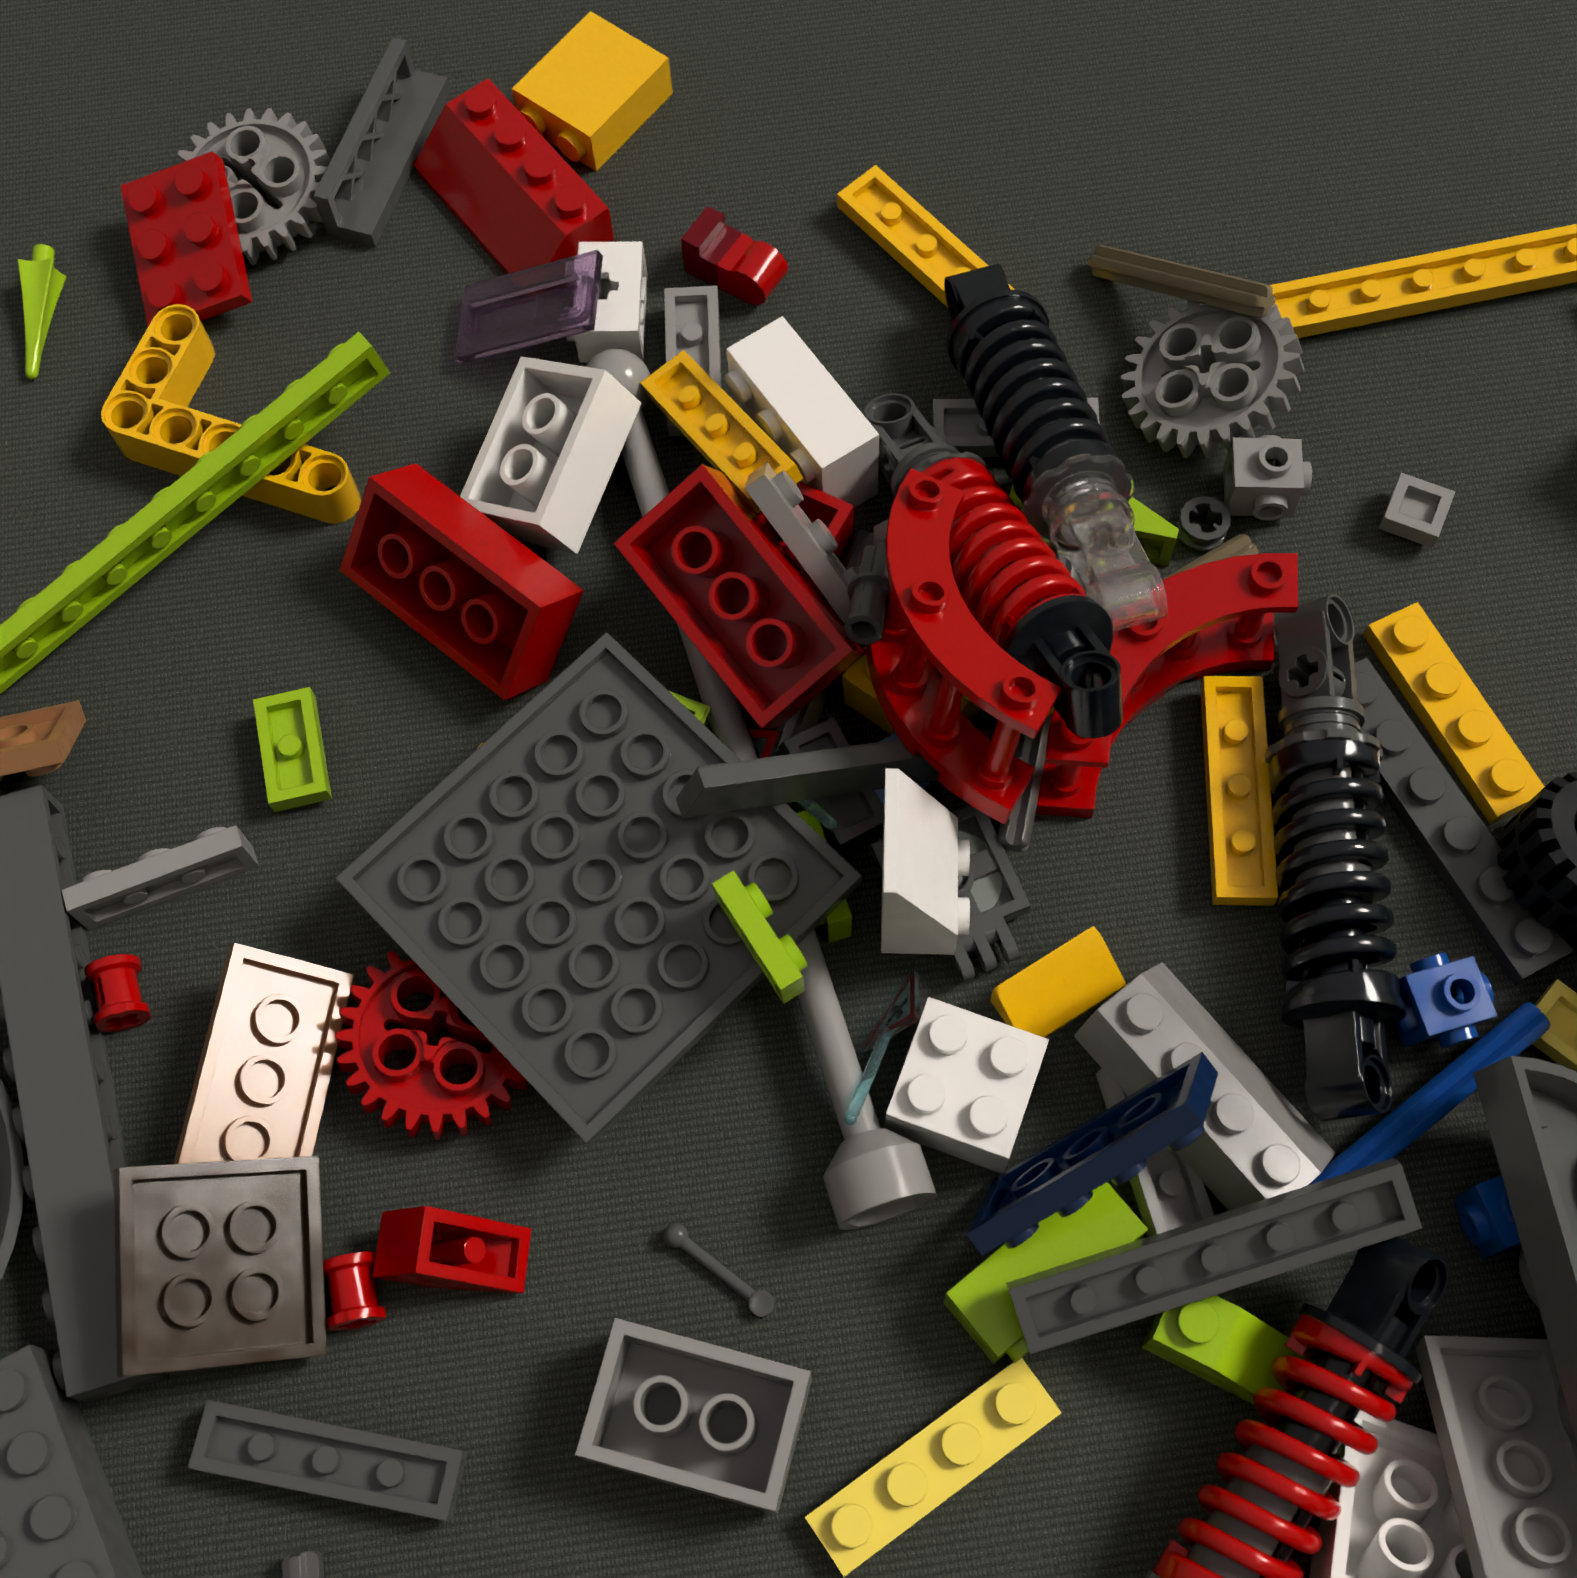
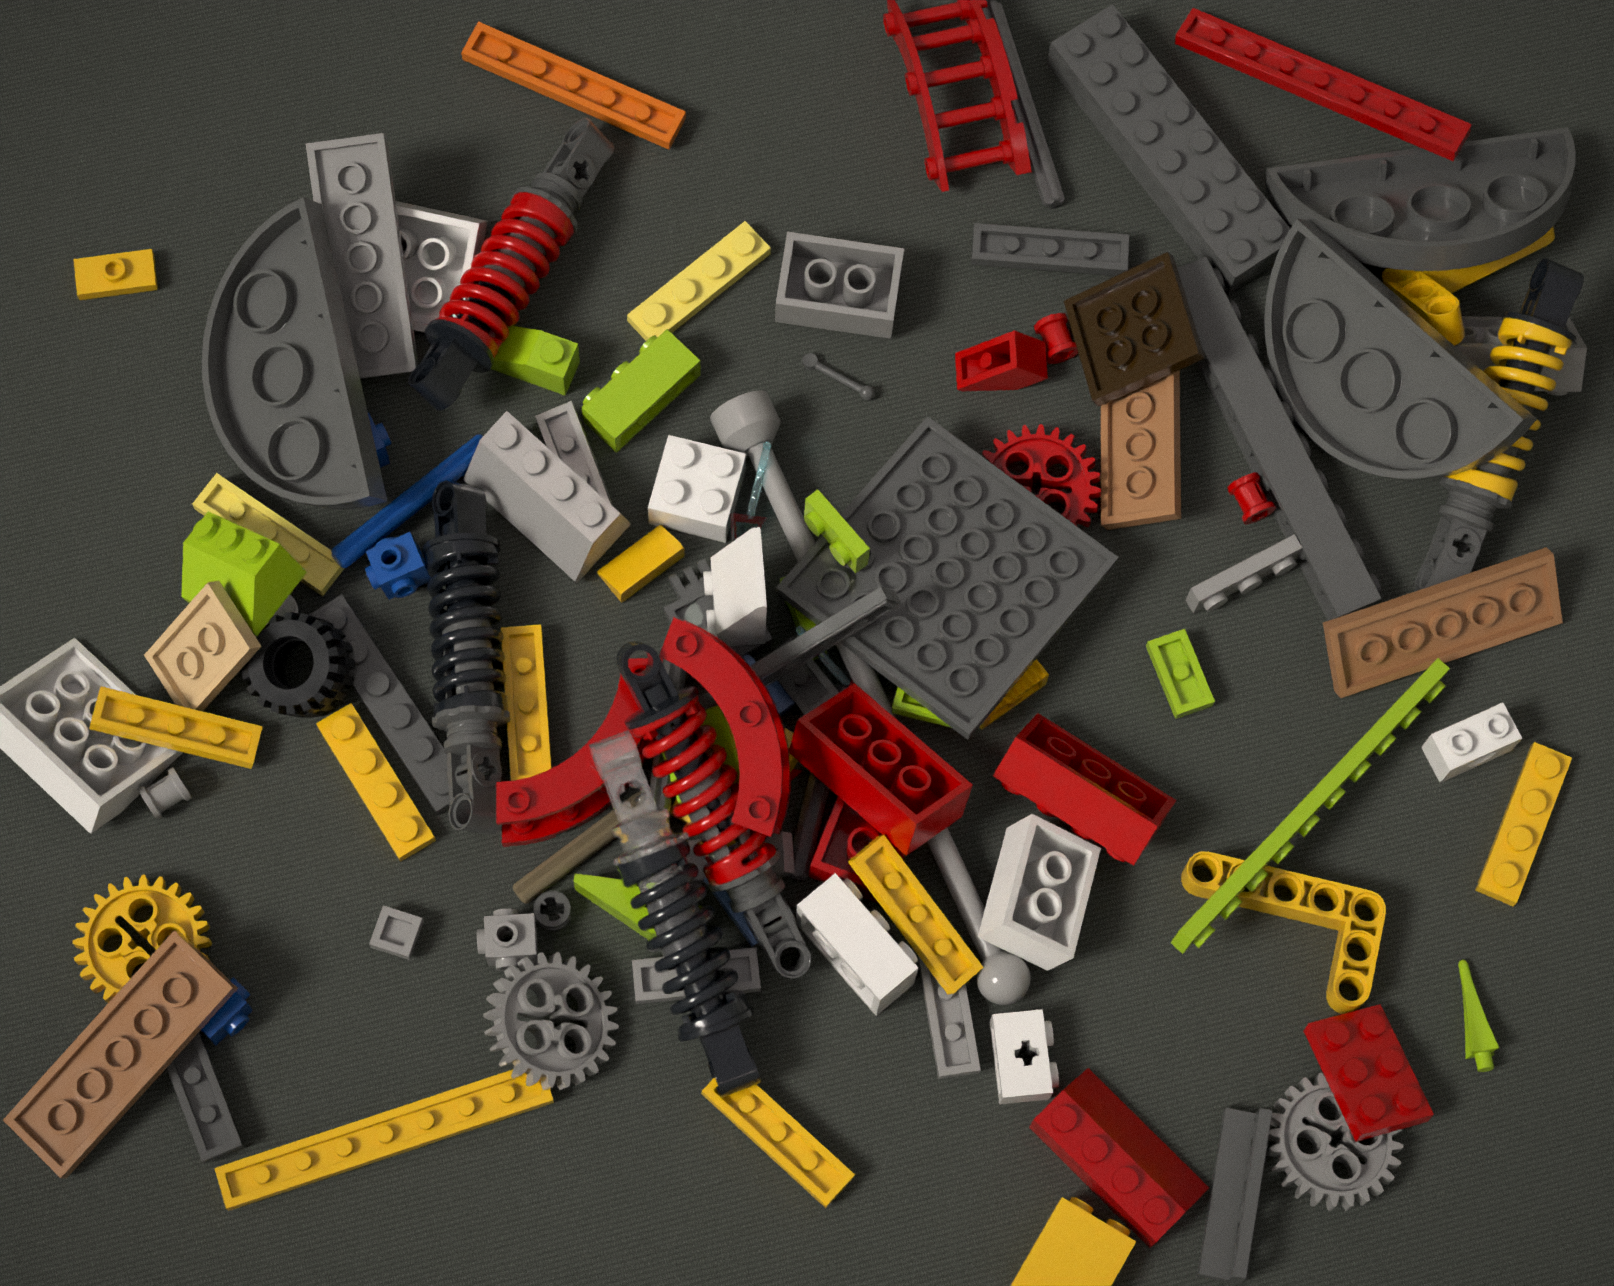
camera: 165 degrees right, 5 degrees up
(529, 307) = (1081, 1030): piece -> none
(731, 259) = (929, 1106): leg -> none
(808, 541) = (837, 806): light grey plate -> none
(868, 596) = (792, 757): dark grey axle -> none
(1102, 1149) = (617, 426): dark blue plate -> none
(1182, 281) = (577, 1095): dark tan axle -> none
(1214, 1255) = (545, 379): dark grey plate -> none

